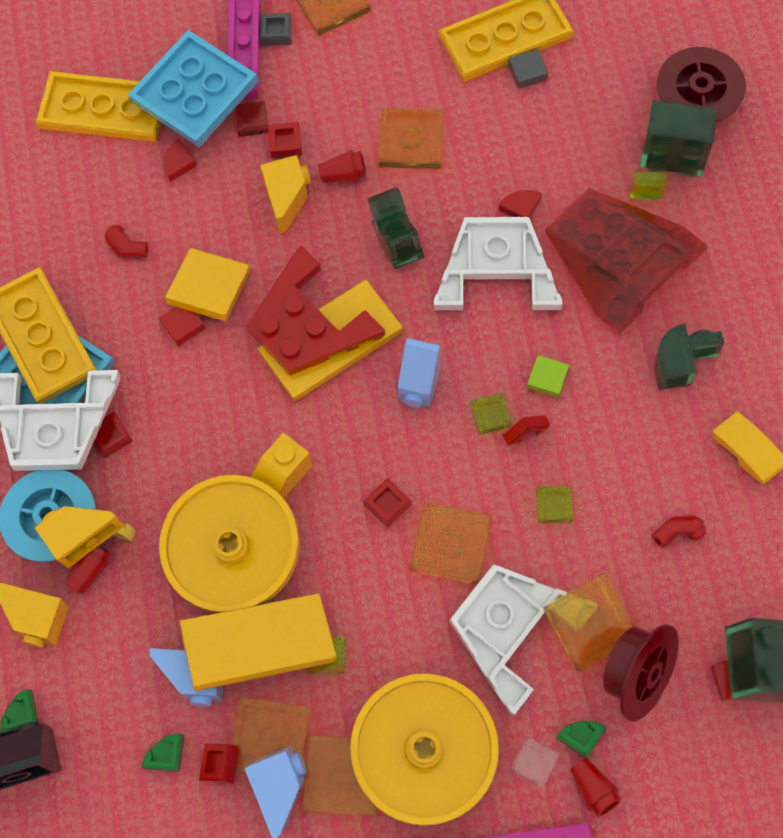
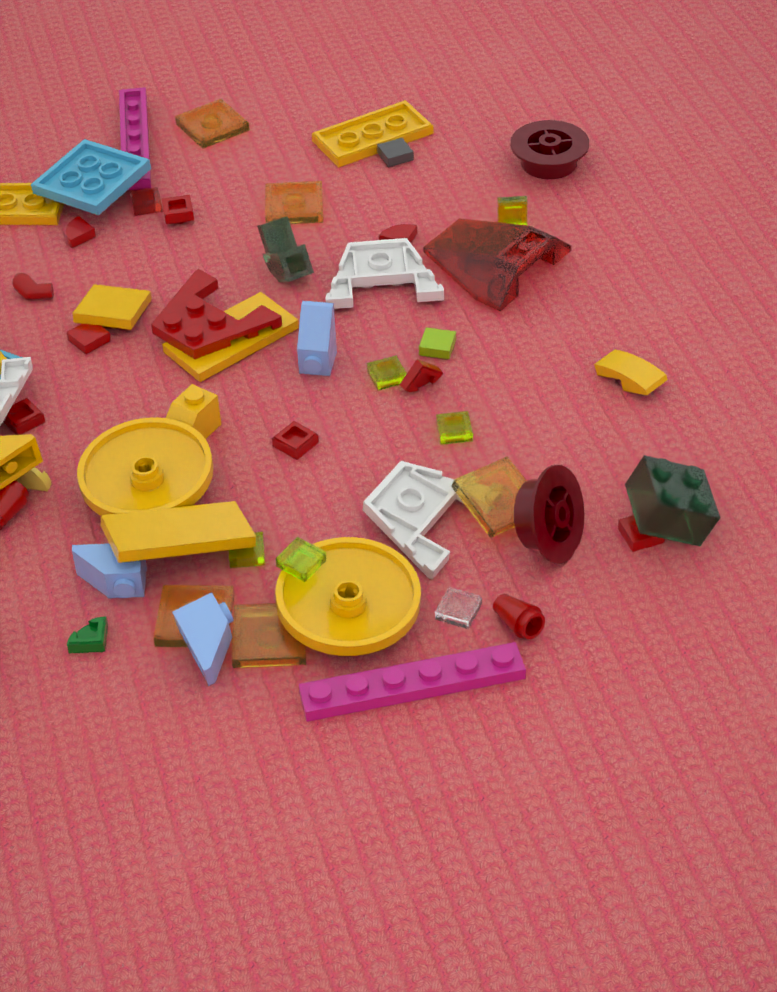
camera: 10 degrees left, 25 degrees down
(219, 763) = (145, 632): red tile -> none
(276, 29) = (164, 144): dark grey tile -> none
(286, 189) = (180, 238): yellow slope -> none
(345, 167) = (233, 222): red cone -> none
(379, 707) = (301, 559): none -> clear neon green tile
(450, 543) = (357, 460): clear yellow tile -> none
(581, 736) = (500, 584): green tile -> none
(676, 355) = (559, 312): clear green brick -> none
(677, 525) = (571, 430): red arm -> none
(678, 138) = (535, 172): clear green brick -> none

